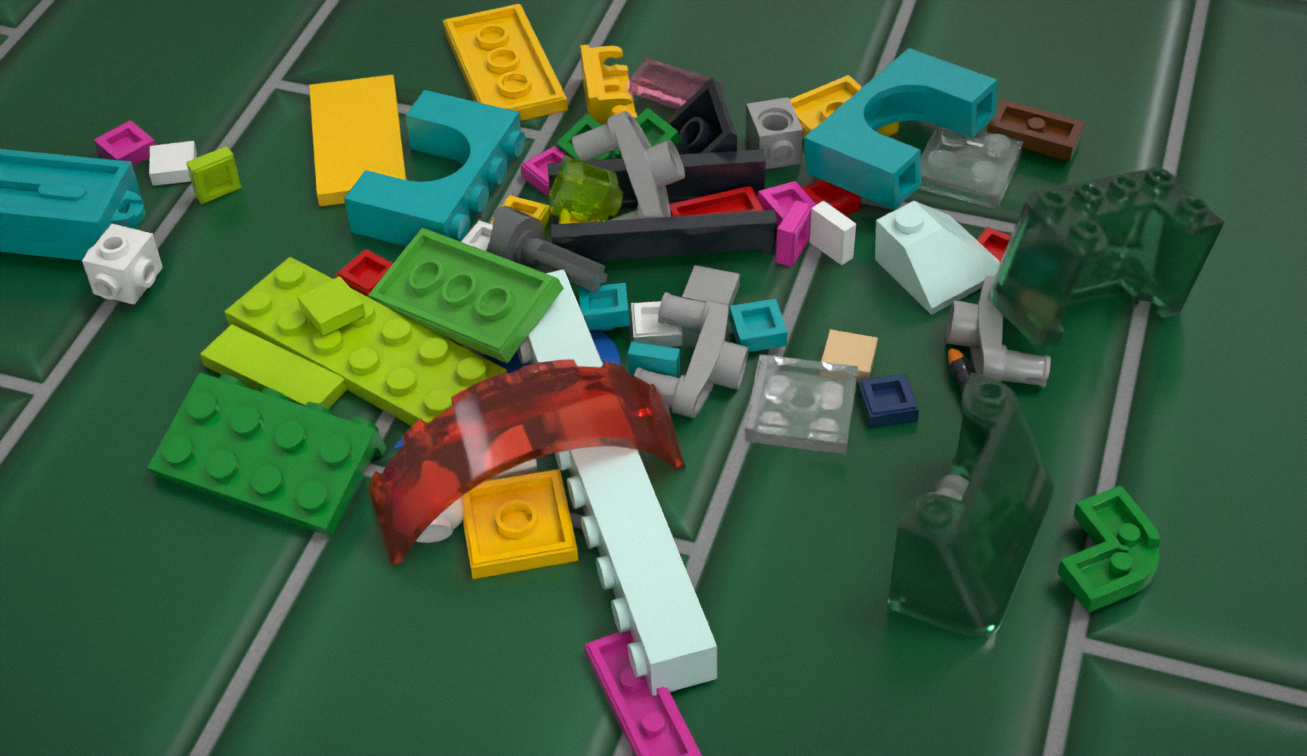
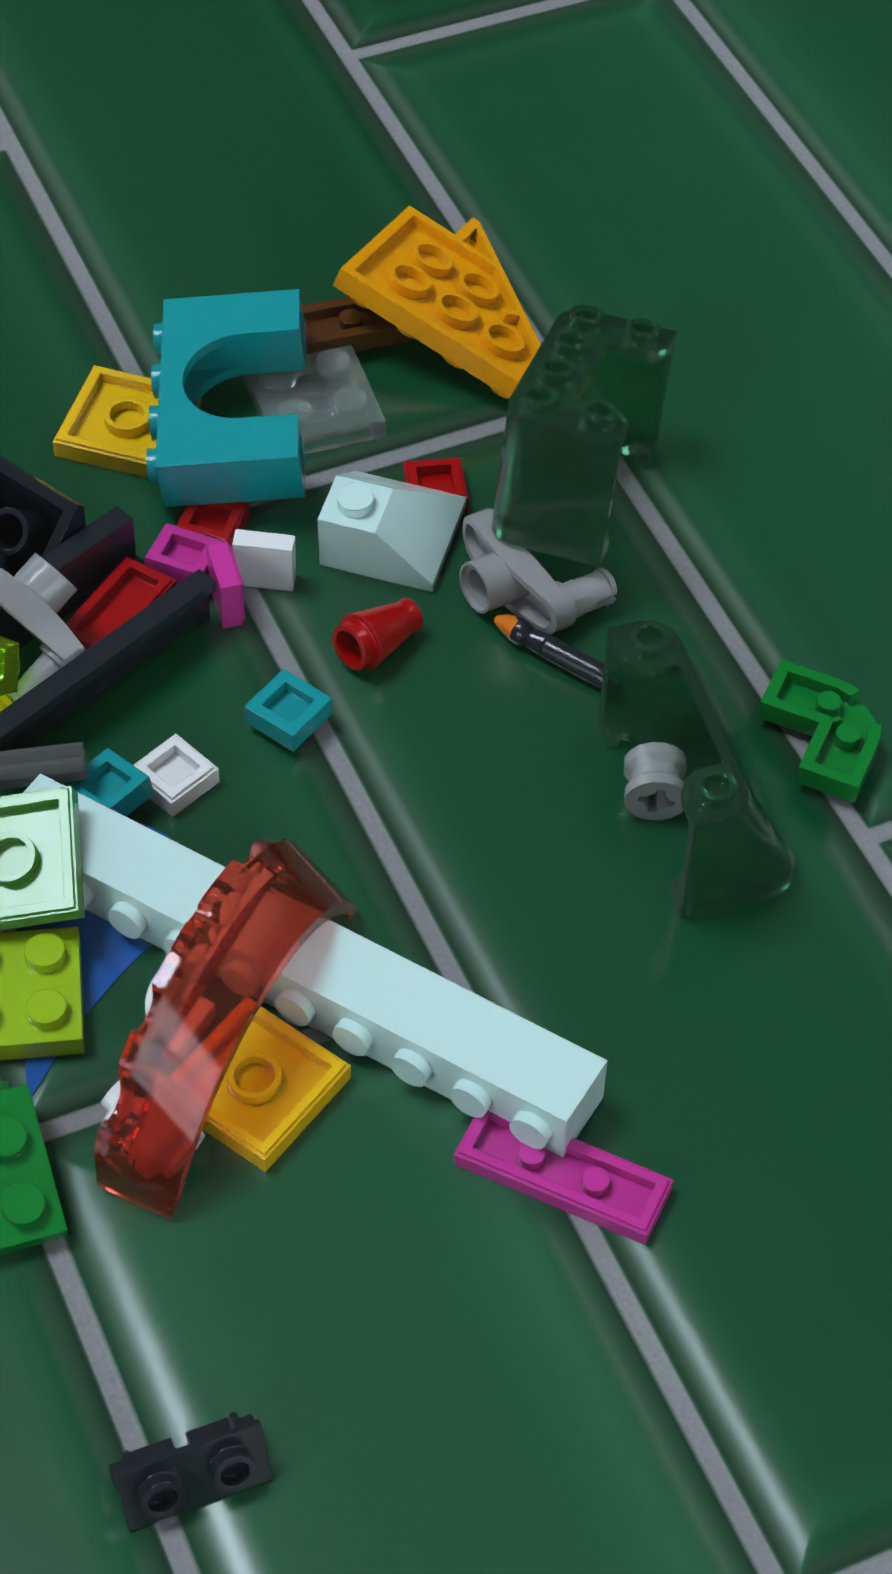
camera: 45 degrees left, 5 degrees up
(242, 710) = (213, 1464): none -> black hinge
(654, 359) = (233, 822): teal tile -> none
(712, 285) = (195, 702): light grey tile -> none
(712, 360) = (281, 774): light grey connector -> none
(776, 129) = (90, 474): light grey brick -> none
(801, 404) = (415, 766): clear plate -> none
(851, 350) = (404, 686): tan tile -> none
(860, 312) = (373, 634): none -> red cone
(887, 400) = (485, 710): dark blue tile -> none
(1108, 125) = (445, 295): none -> light orange wing

